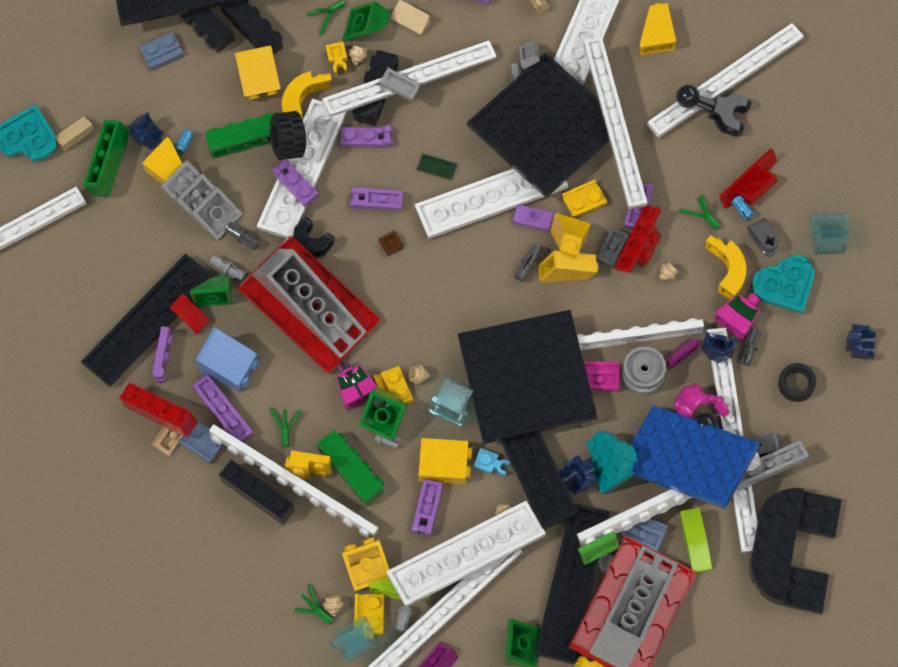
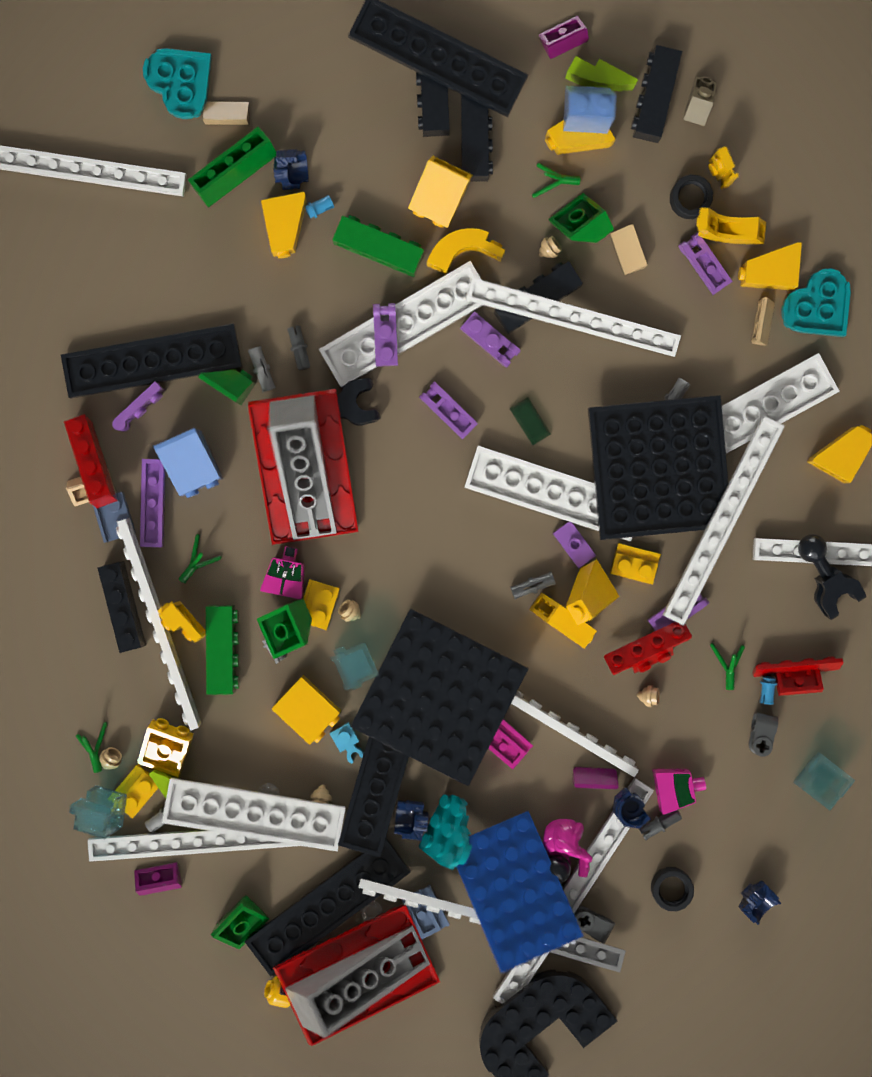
camera: 30 degrees right, 20 degrees up
(161, 51) = (372, 92): sand blue plate -> none
(189, 313) = (191, 387): red tile -> none
(201, 199) = (287, 281): light grey slope -> none
(287, 135) = (411, 288): black tyre -> none
(337, 56) = (529, 233): yellow plate -> none
(391, 243) = (427, 463): reddish brown tile -> none
(399, 84) = (557, 319): light grey tile -> none
(427, 506) = (259, 738): medium lavender plate -> none
(529, 54) = (704, 382): light grey tile -> none
(599, 547) = (371, 902): bright green tile -> none
(612, 247) = (620, 632): dark grey plate -> none
(644, 370) = (552, 785): light grey wheel -> none
(695, 540) = (462, 955): lime slope -> none
(735, 264) = (712, 742): yellow arch -> none
(785, 284) = (742, 792): teal plate -> none

